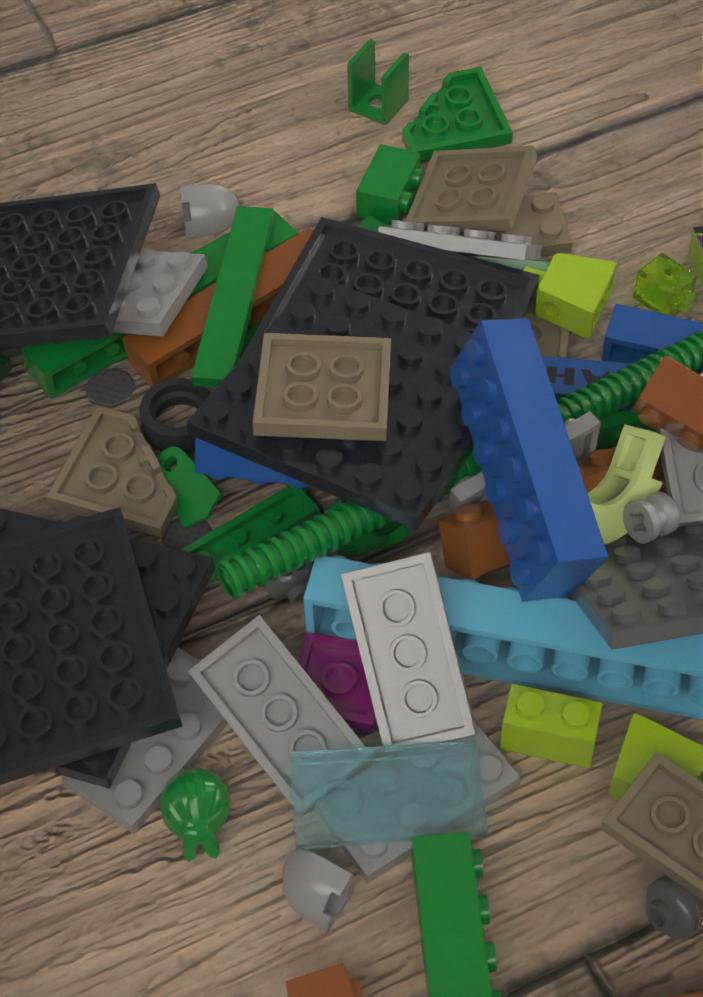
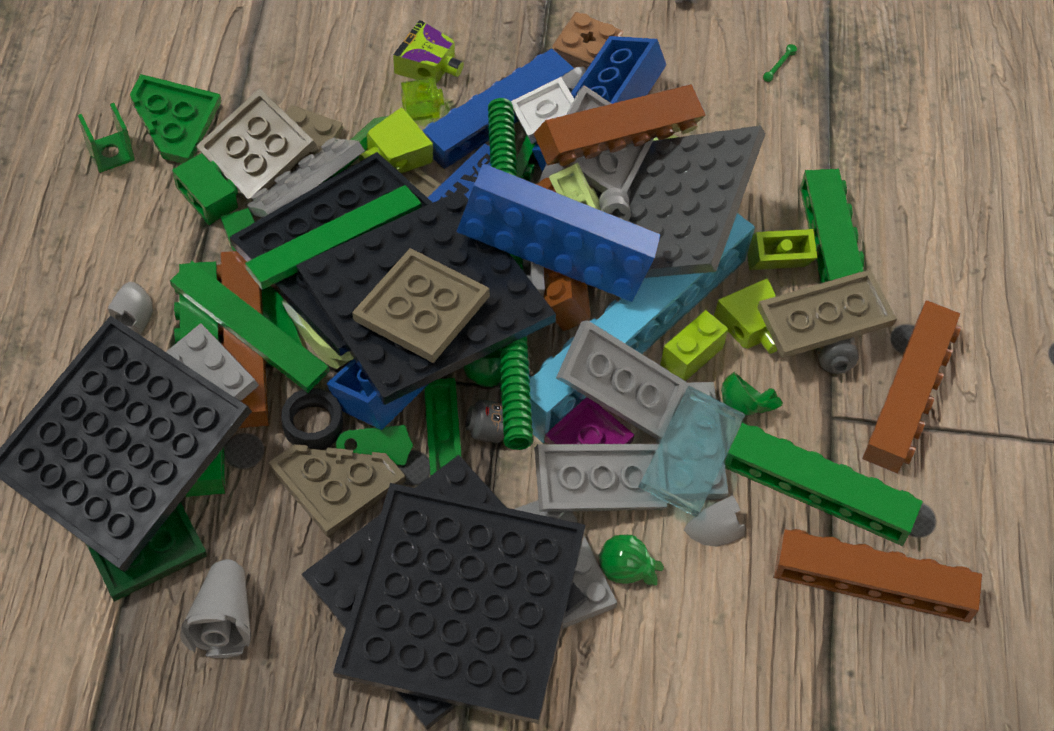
camera: 65 degrees left, 5 degrees up
(305, 261) = (282, 261): none -> green tile
(522, 823) = (745, 398): none -> green piece

